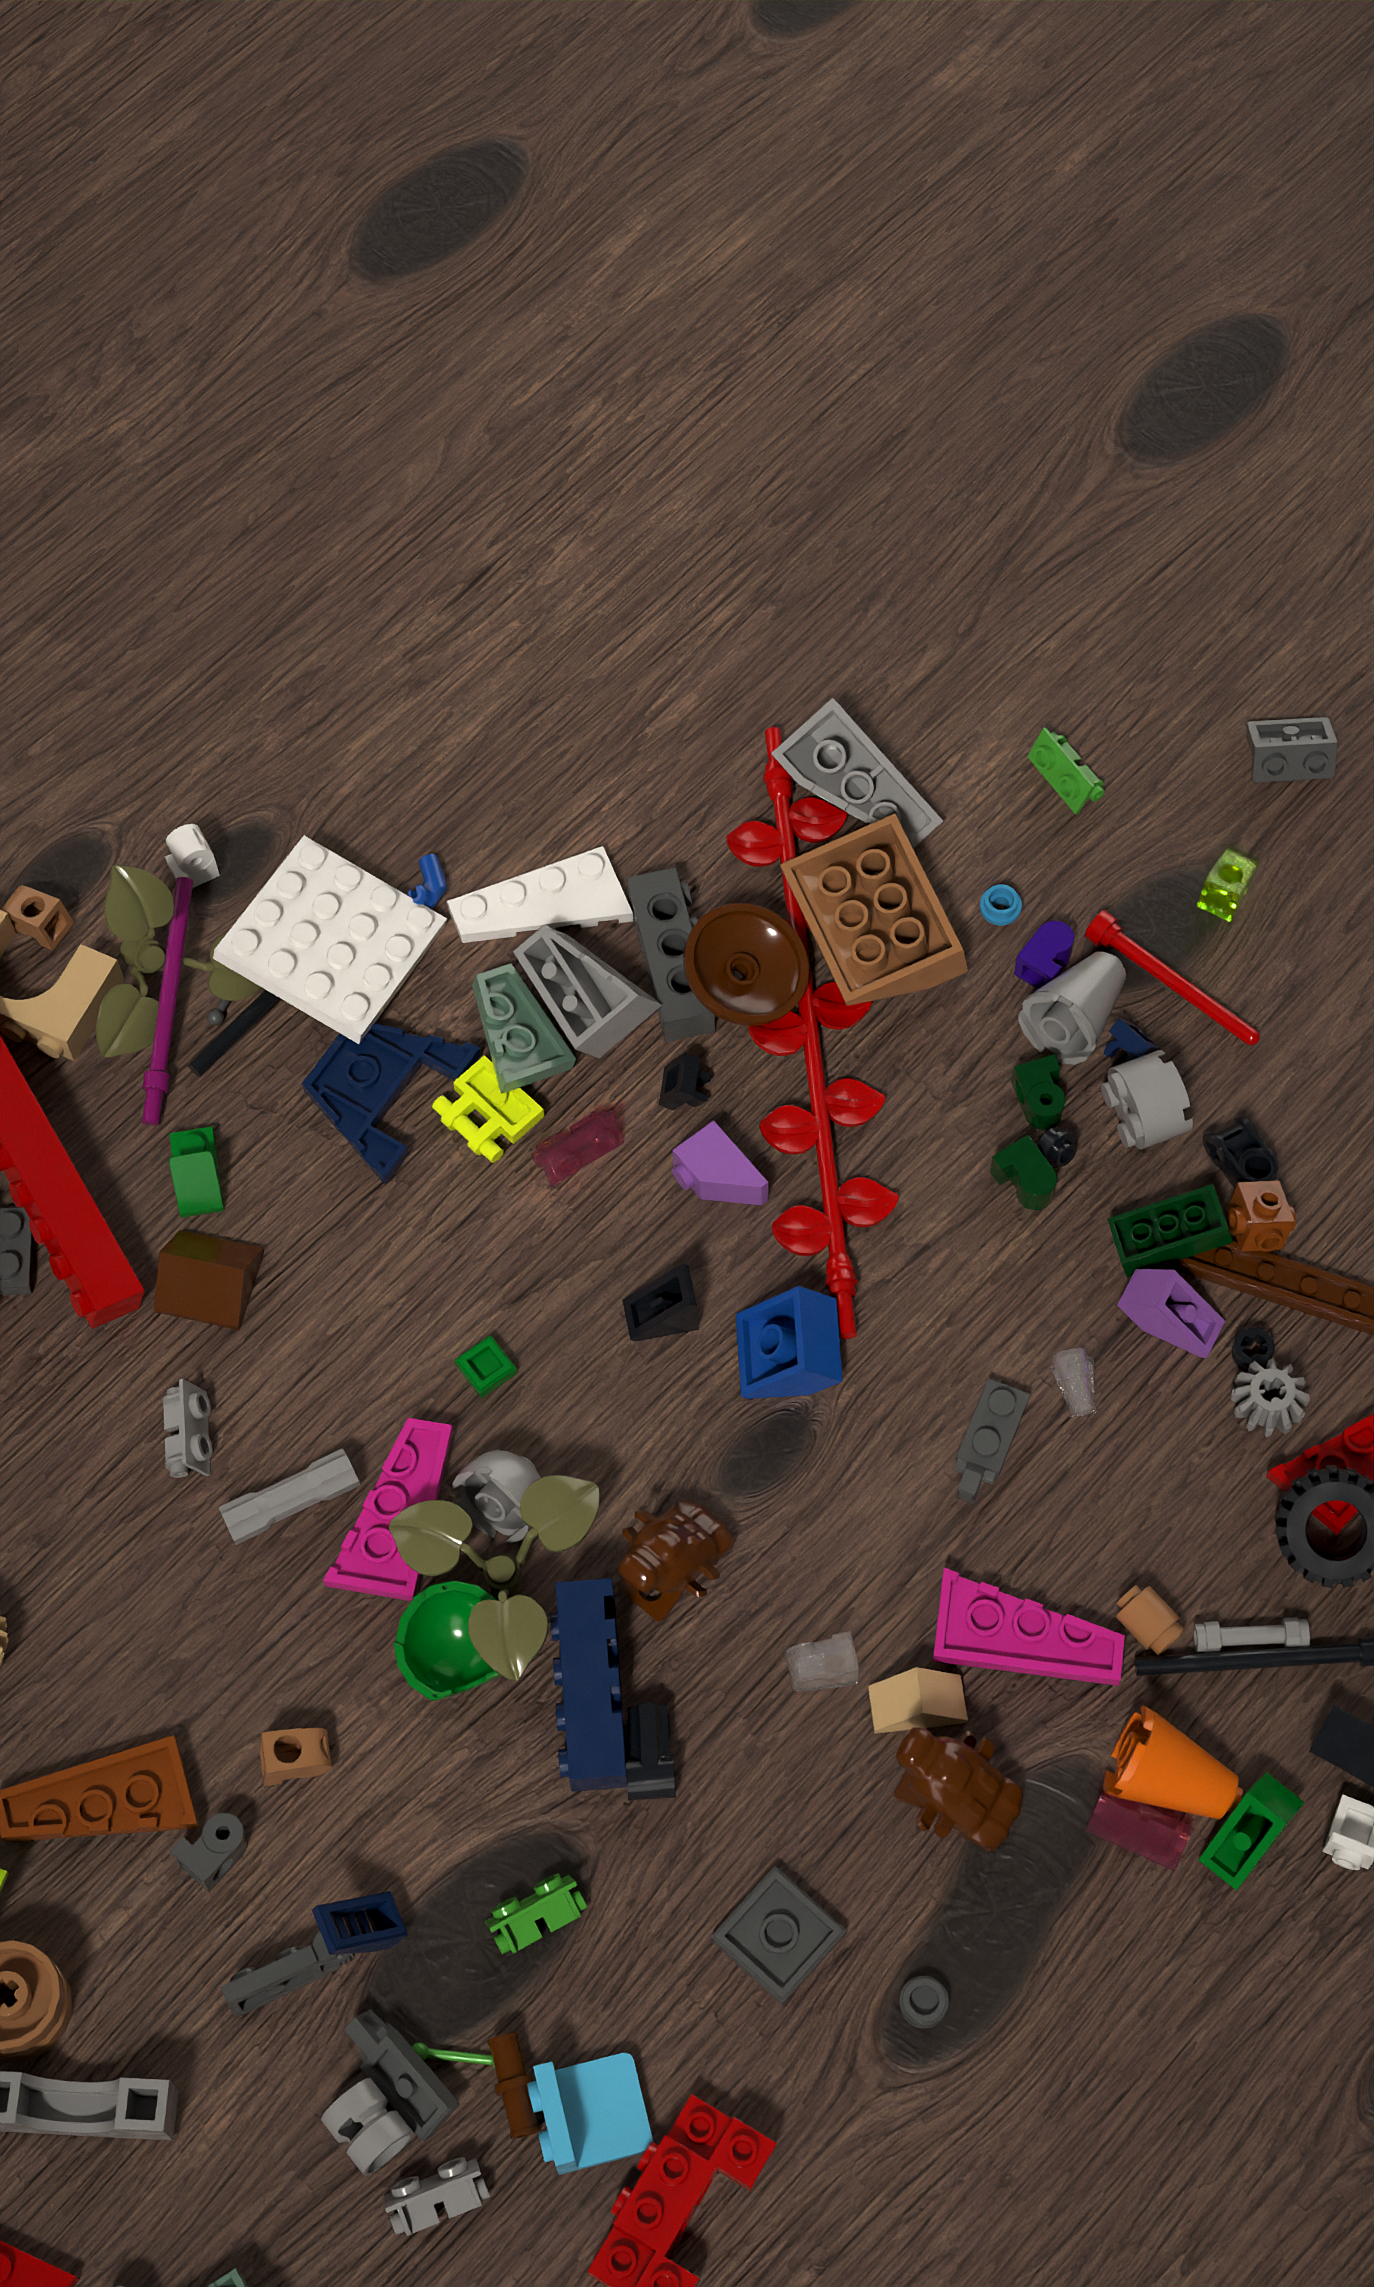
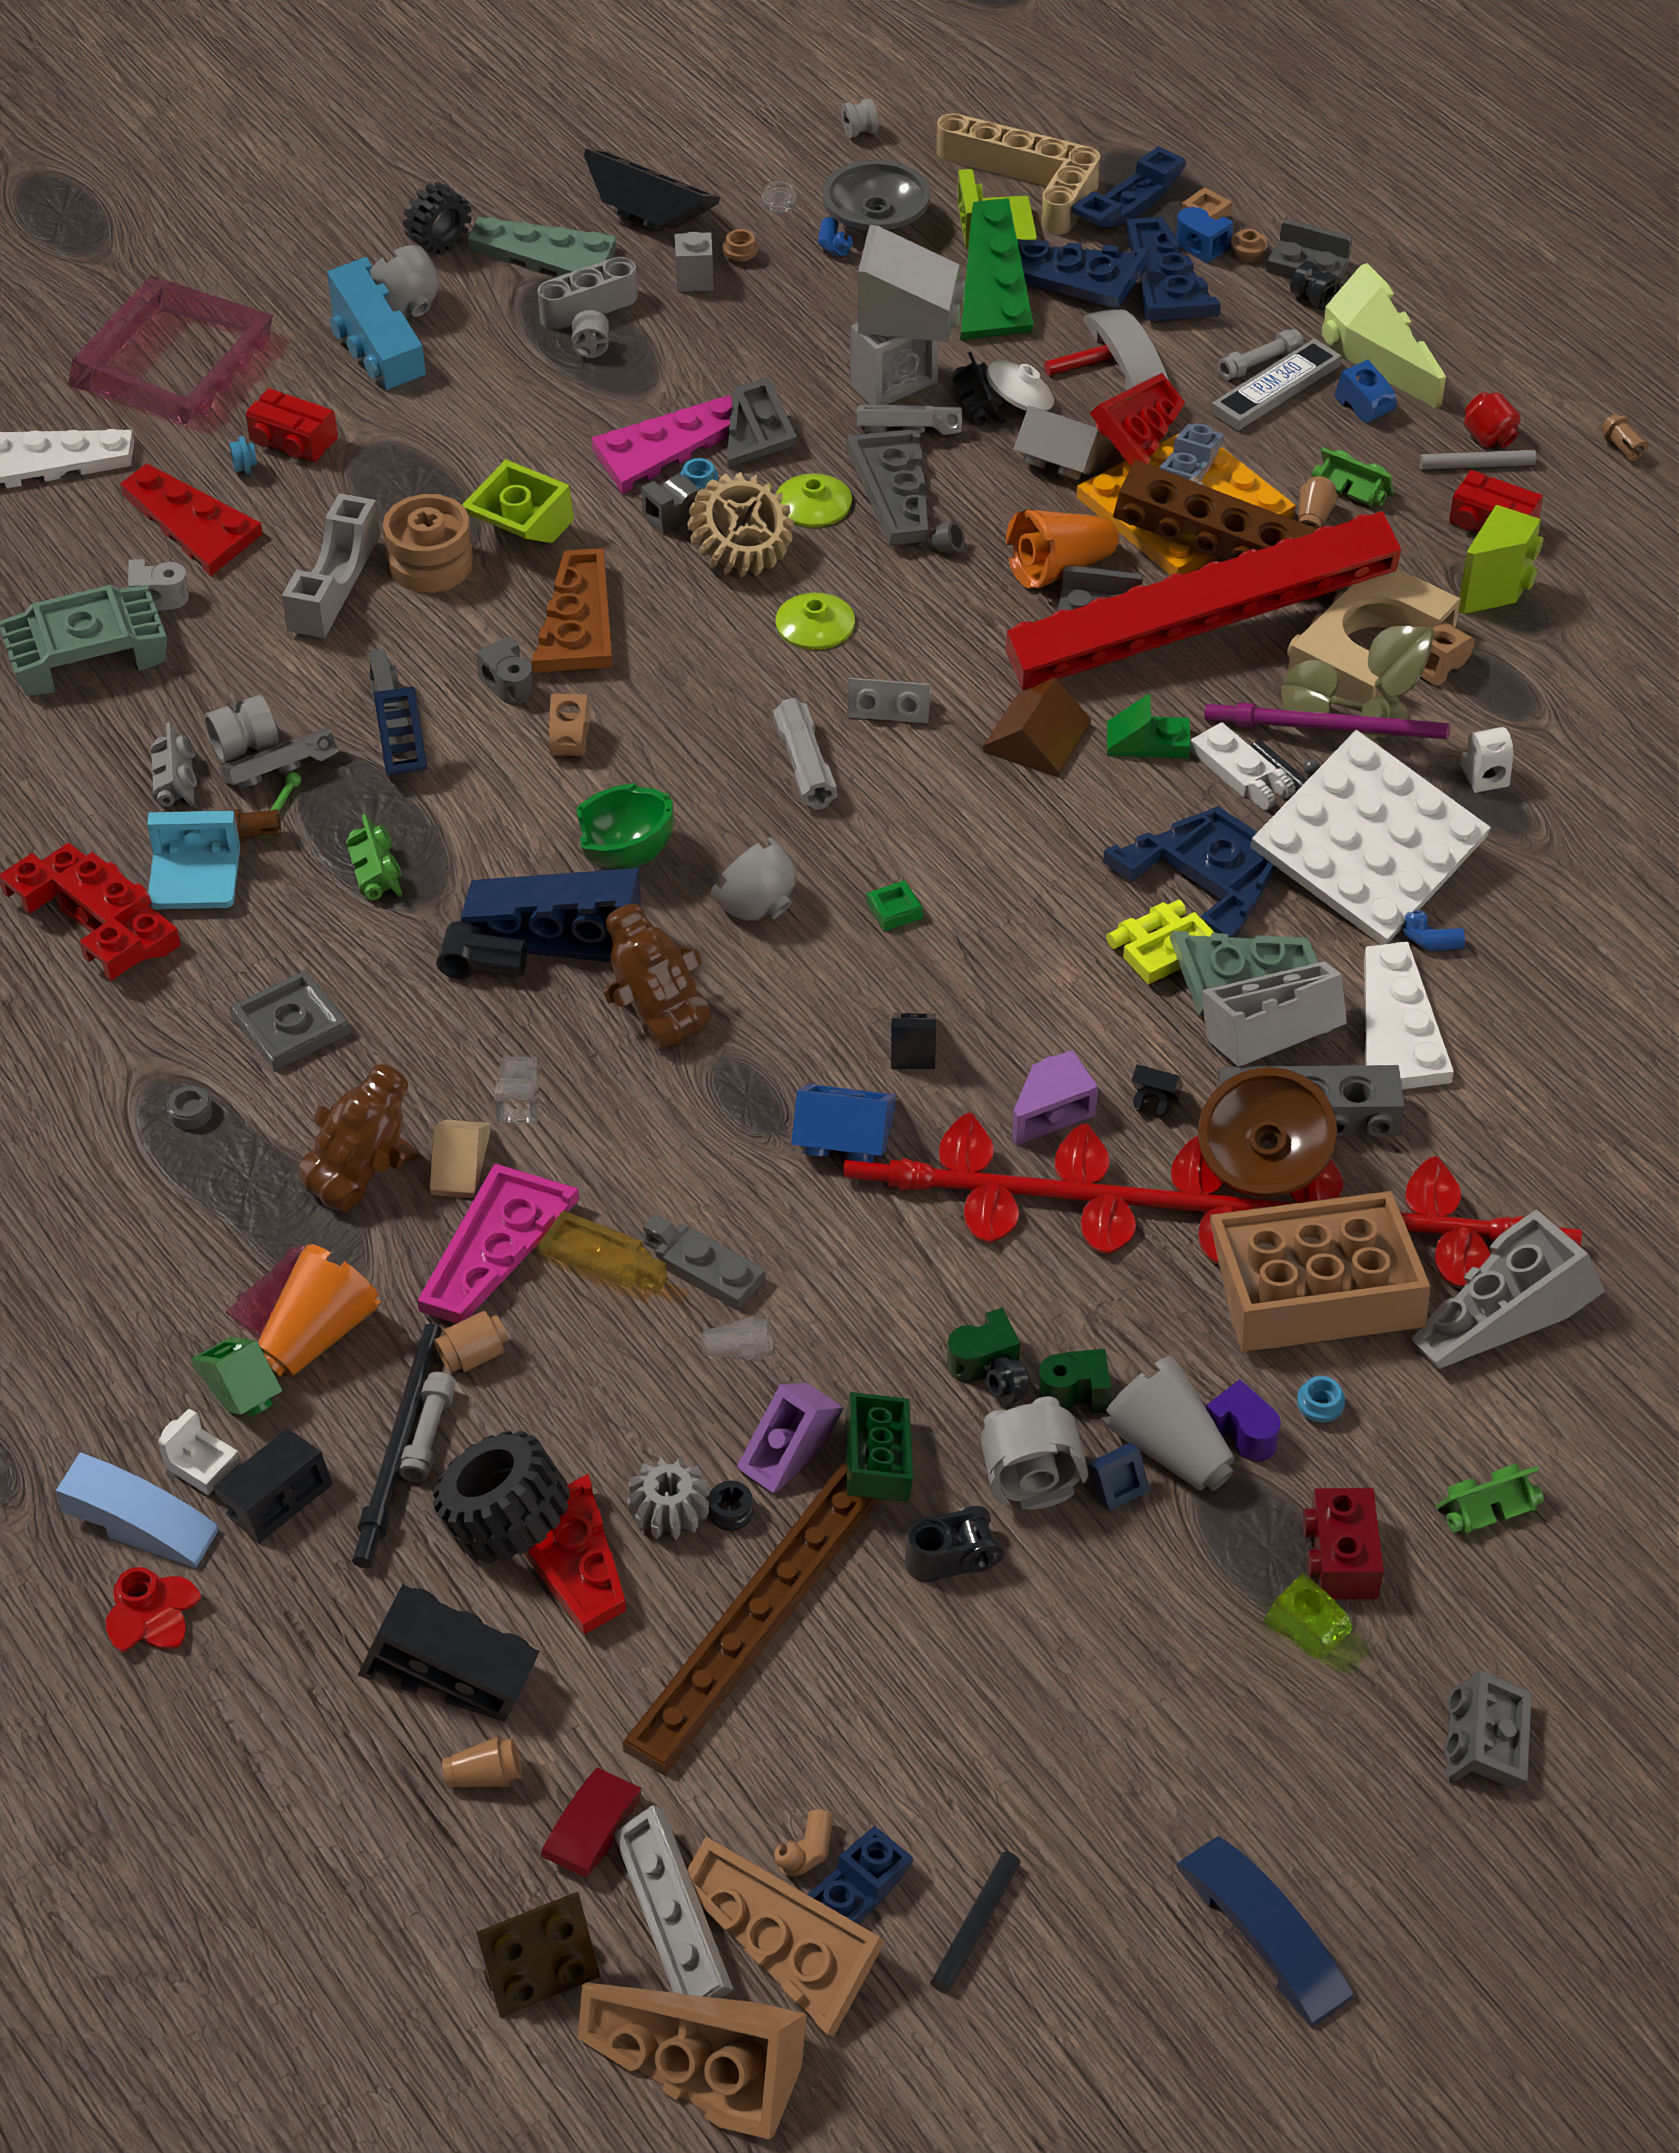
camera: 100 degrees right, 15 degrees down
(72, 1557) = (815, 621): none -> lime dish
(226, 1079) = (1241, 766): none -> white hinge
(409, 1476) = (747, 816): dark pink wing -> none
(514, 1627) = (708, 890): olive plant -> none
(589, 1141) = (1105, 999): clear pink hinge -> none
(1008, 1531) = (603, 1253): none -> clear yellow hinge
(1106, 931) = (1267, 1487): red piece -> none
(1149, 864) = (1345, 1543): none -> dark red brick
(1260, 1216) = (872, 1532): dark orange brick -> none

